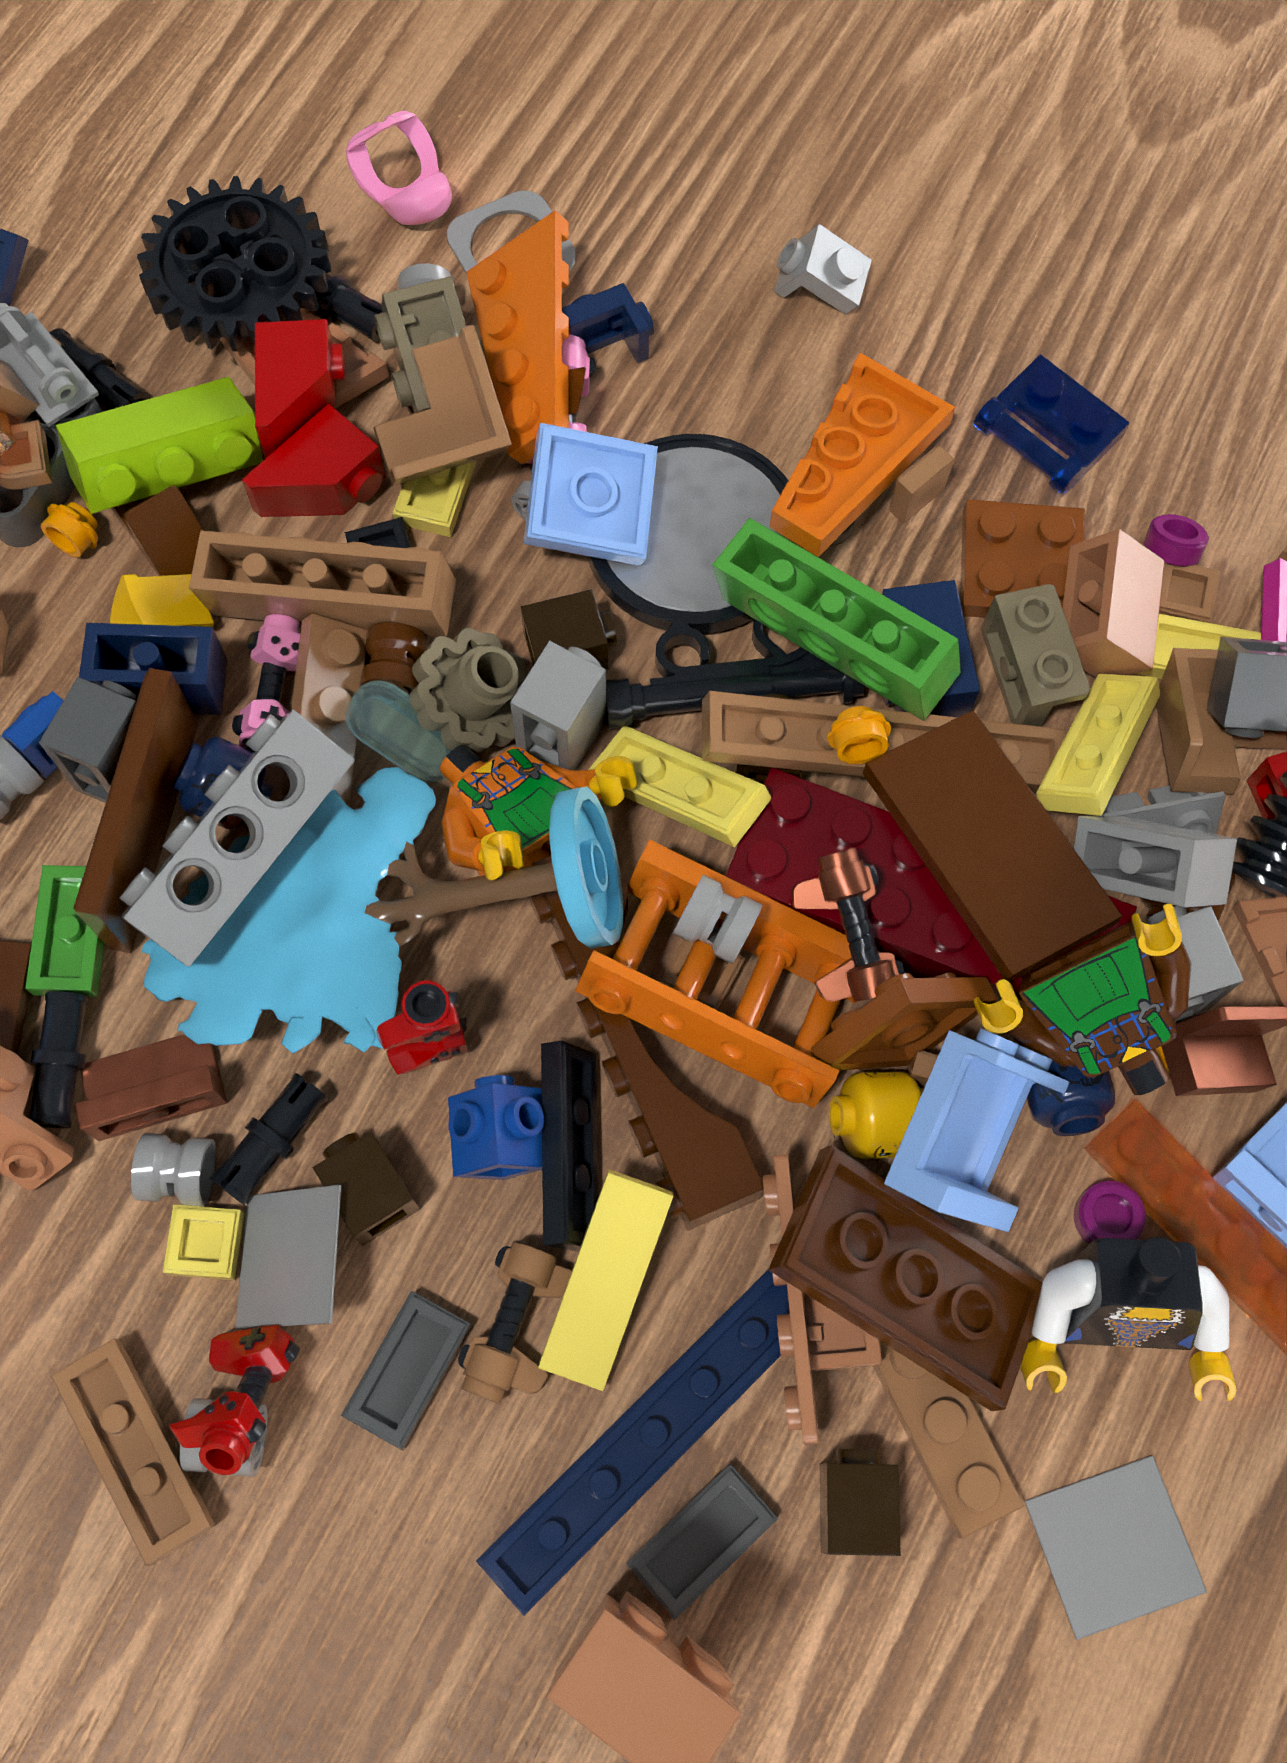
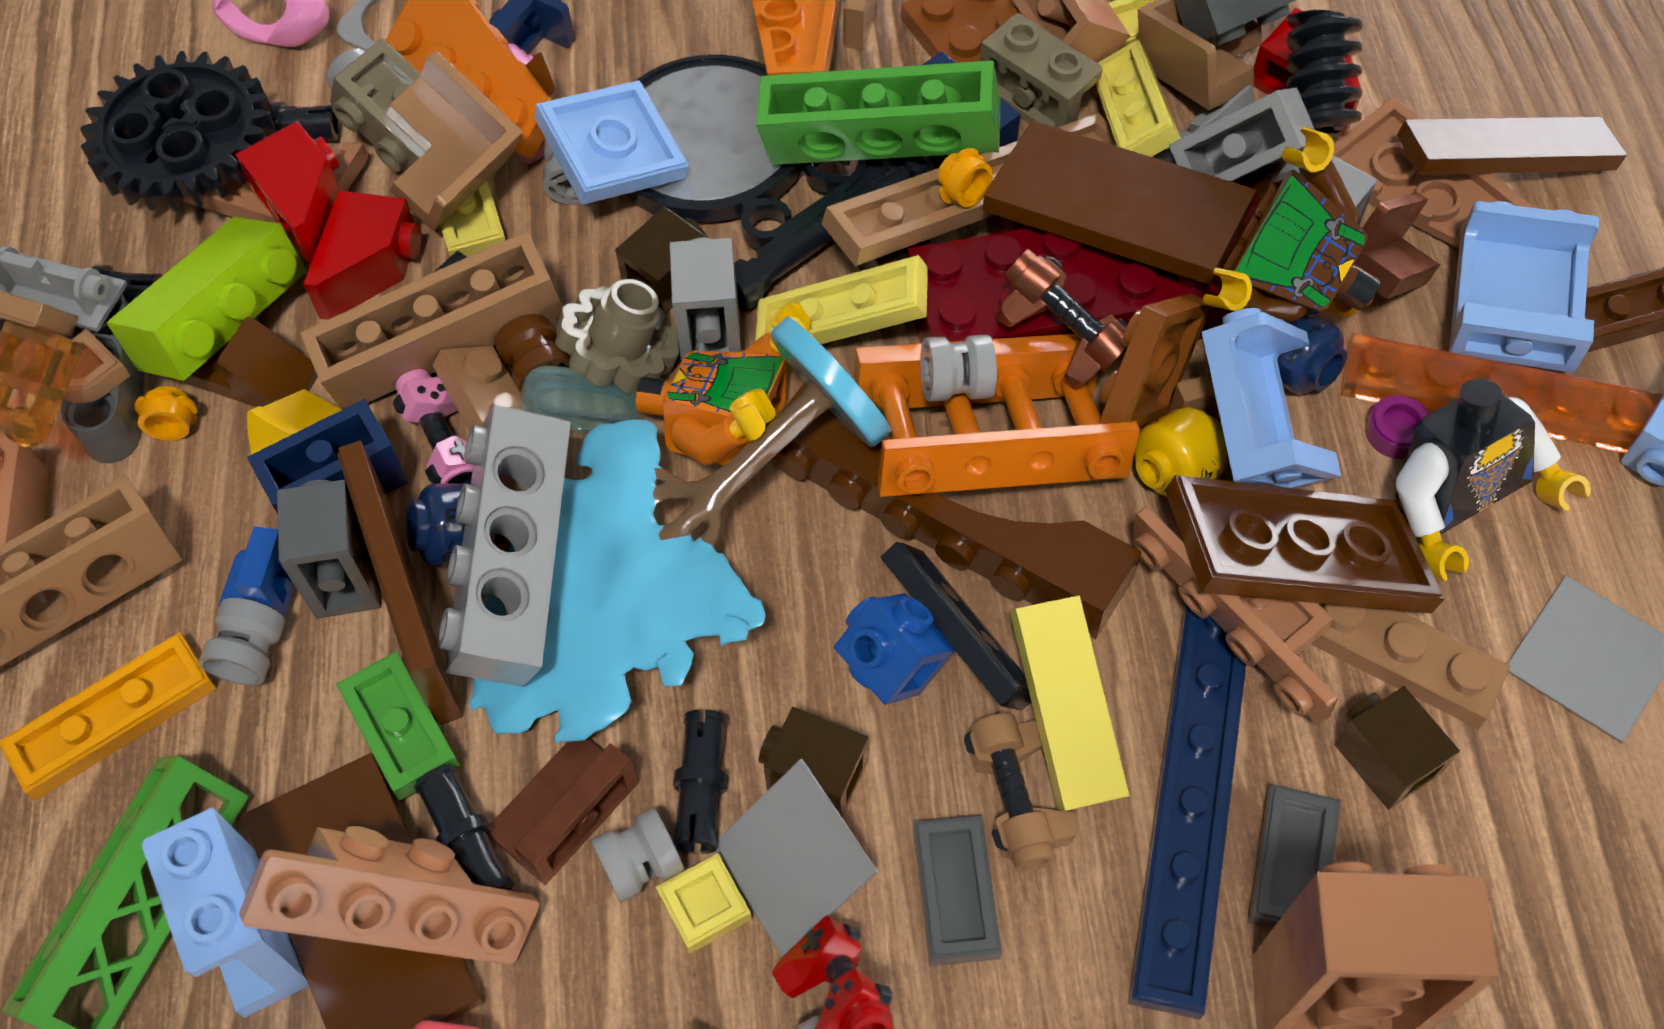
camera: 30 degrees left, 10 degrees down
(425, 1030) = (781, 595): red piece -> none

